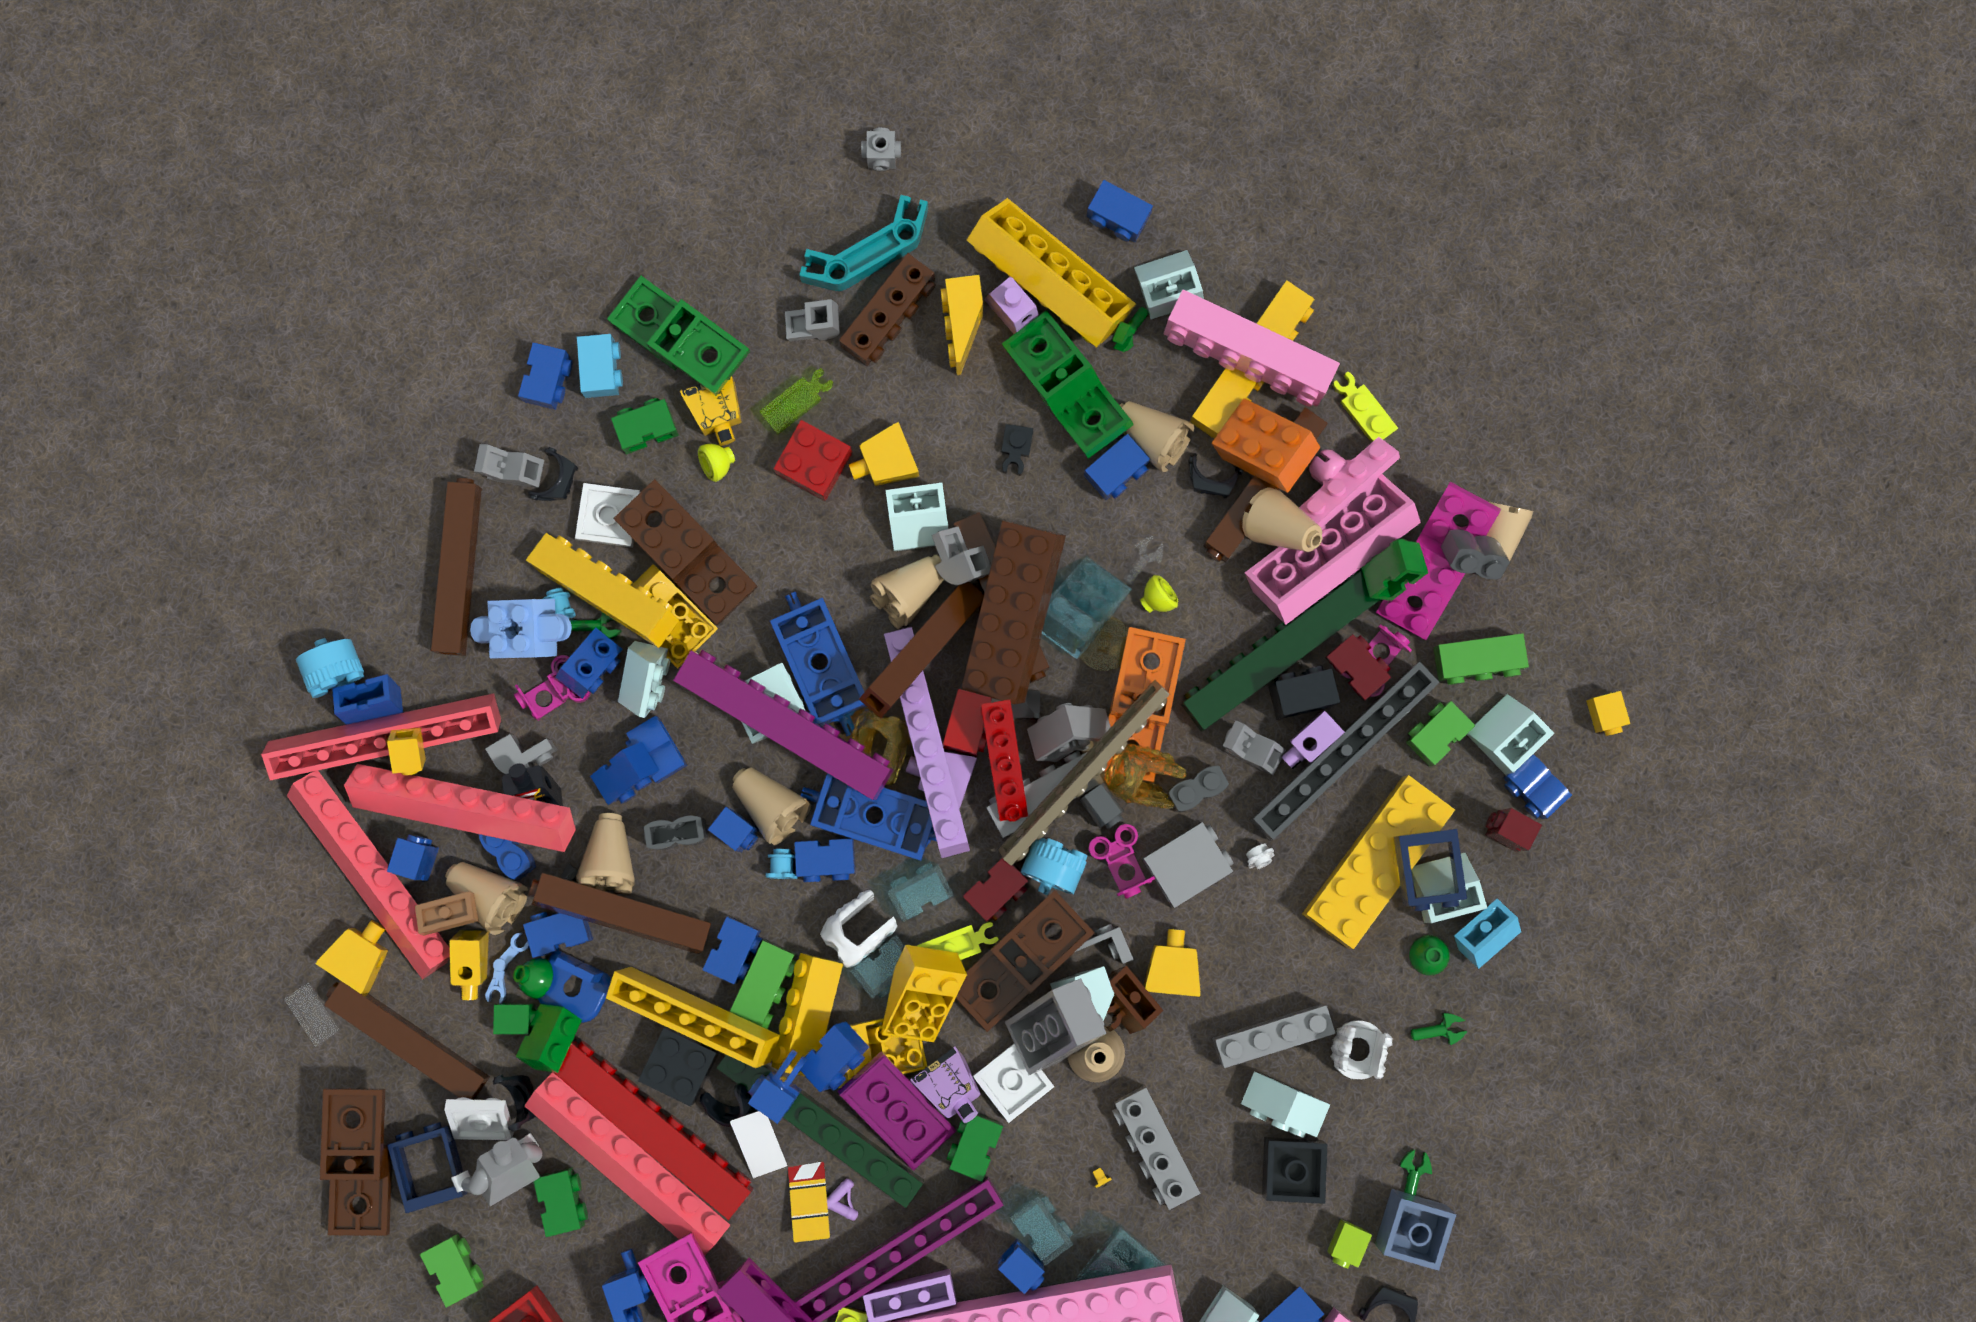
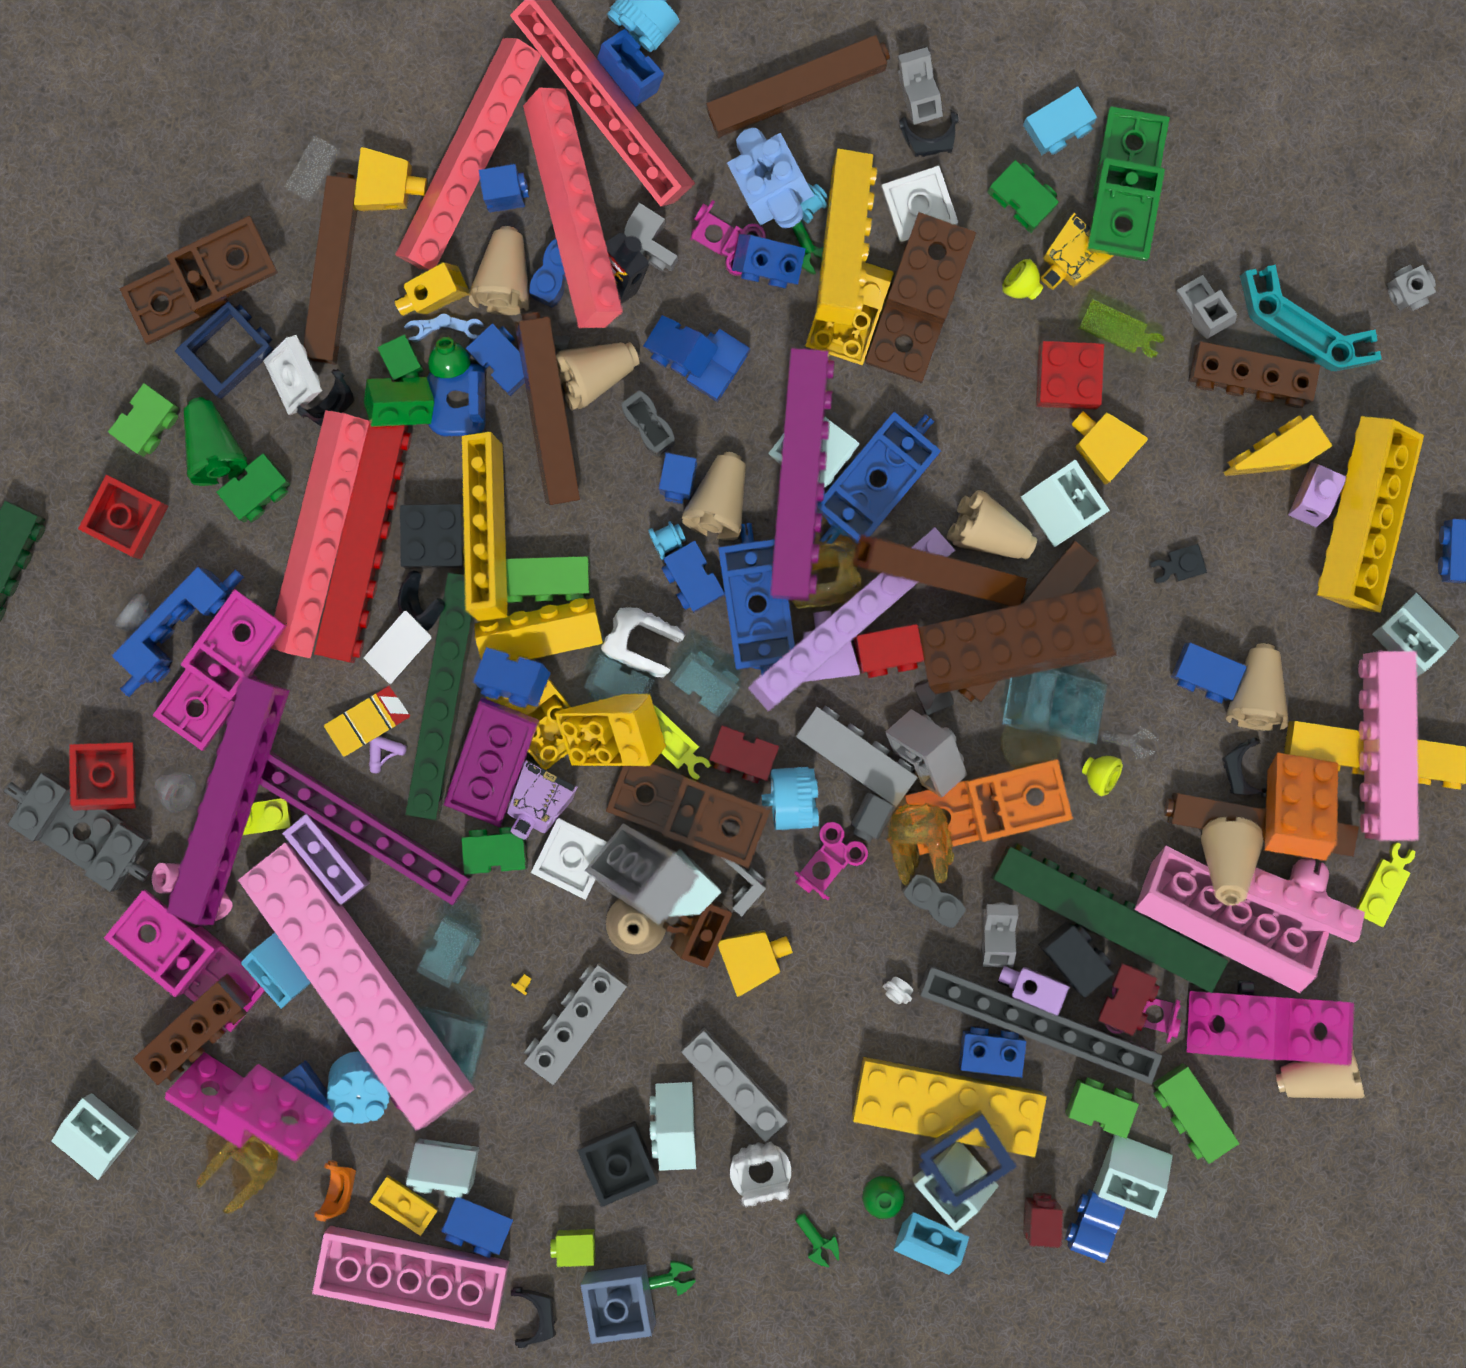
camera: 70 degrees right, 5 degrees up
(406, 751) = (600, 129): yellow brick -> none
(446, 913) = (467, 246): medium nougat plate -> none
(502, 1170) = (257, 420): light grey torso -> none
(505, 1224) = (210, 445): none -> green cone
(546, 378) = (1024, 77): blue brick -> none
(643, 678) = (779, 317): light aqua slope -> none
(731, 957) = (565, 534): blue brick -> none
(775, 1093) = (451, 640): blue brick -> none
(957, 562) = (1038, 564): light grey brick -> none
(1004, 760) = (870, 702): red slope -> none
(1021, 1267) = (404, 950): blue brick -> none
(1067, 384) = (1266, 584): green bracket -> none
(1077, 779) = (904, 786): dark tan plate -> none
(1125, 332) = (1347, 615): green bar -> none
(1188, 864) = (857, 926): light grey brick -> none
(1350, 802) = (992, 1052): none -> blue brick
(1394, 568) = (1240, 987): green brick -> none
(1475, 554) = (1293, 1060): dark grey brick -> none
(1608, 713) = (1201, 1262): yellow brick -> none

